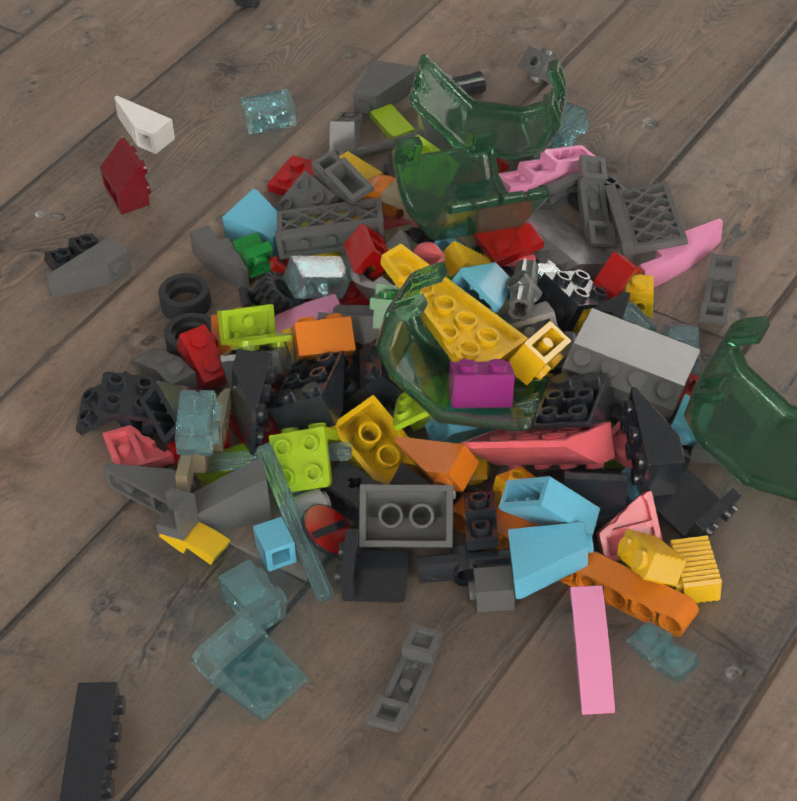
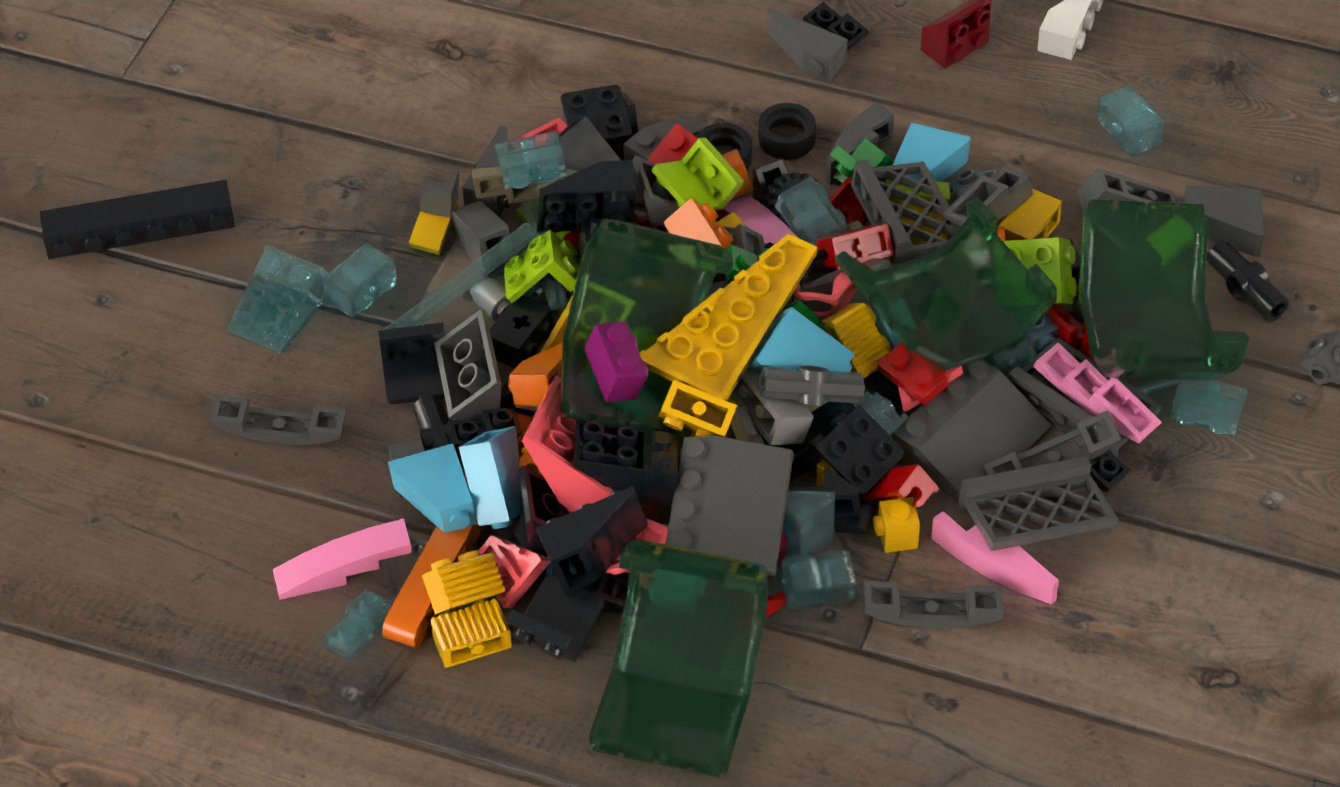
camera: 75 degrees right, 5 degrees up
(274, 544) = (433, 276): medium azure brick -> none
(289, 174) = (1044, 174): red wing -> none
(324, 528) = (456, 306): red piece -> none

